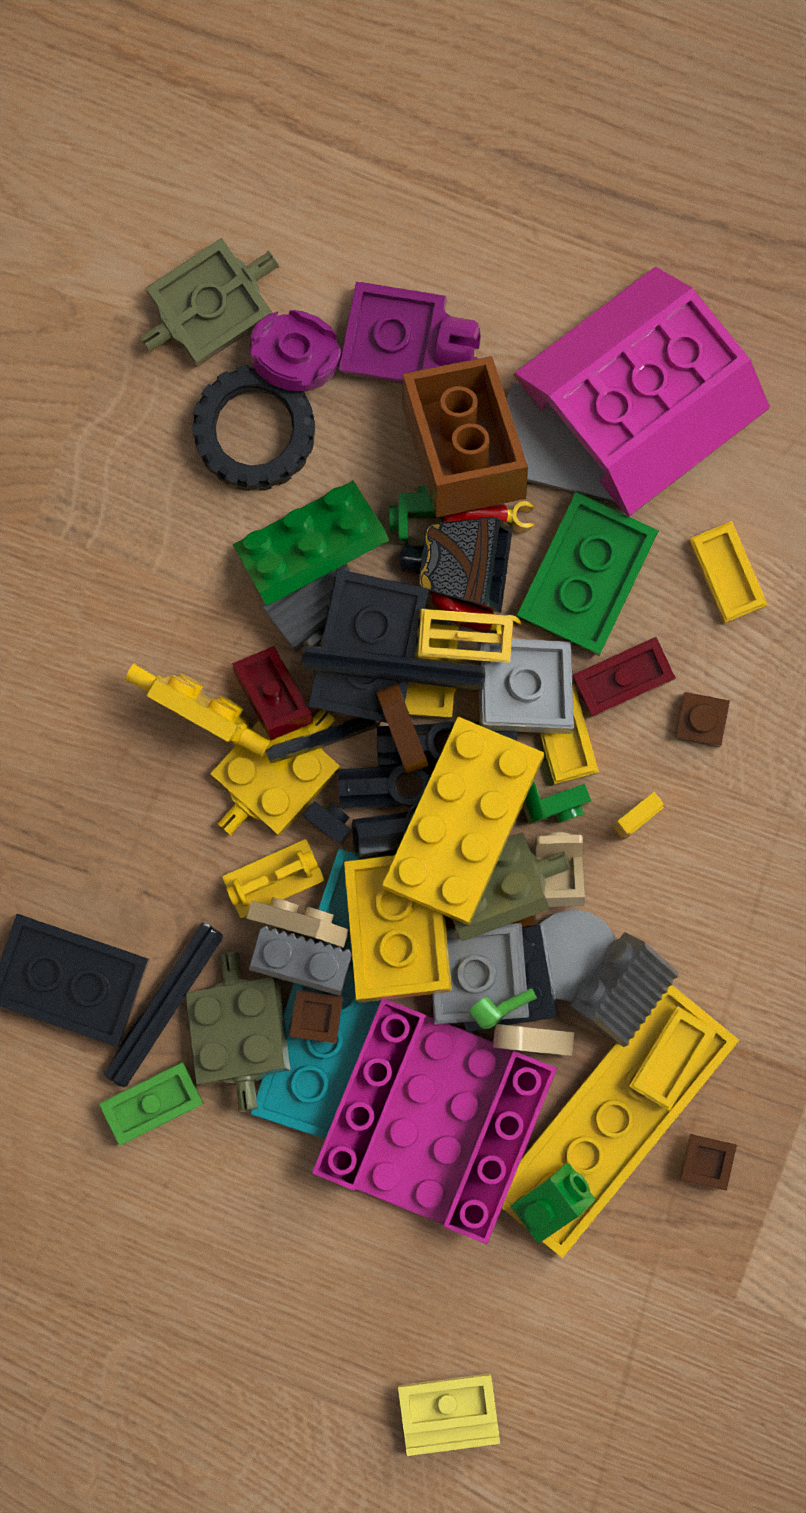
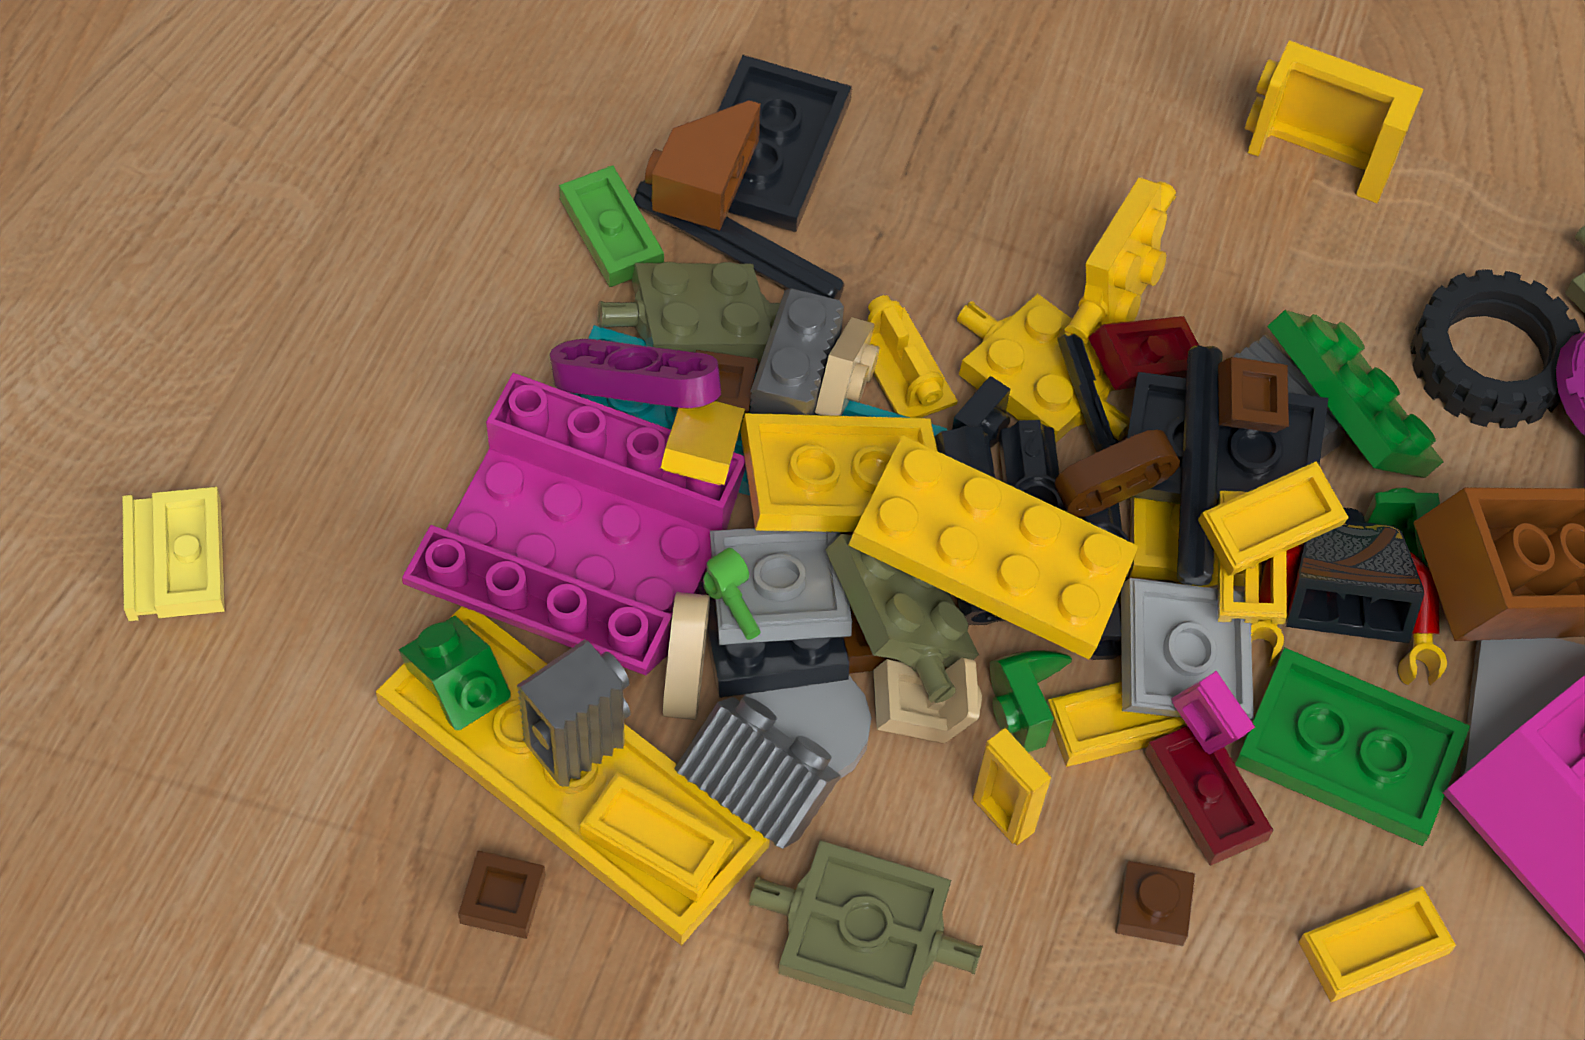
camera: 80 degrees right, 25 degrees down
(48, 525) = (1334, 111): none -> yellow panel
(114, 1032) = (704, 165): none -> dark orange slope
(331, 1068) = (636, 373): none -> magenta beam
(345, 626) = (1253, 394): none -> reddish brown plate
(380, 1030) = (703, 442): none -> yellow tile
(447, 621) = (1272, 518): none -> yellow tile
(585, 674) = (1212, 713): none -> dark pink tile
(601, 1116) = (574, 711): none -> flat silver brick
(726, 916) = (865, 927): none -> olive plate

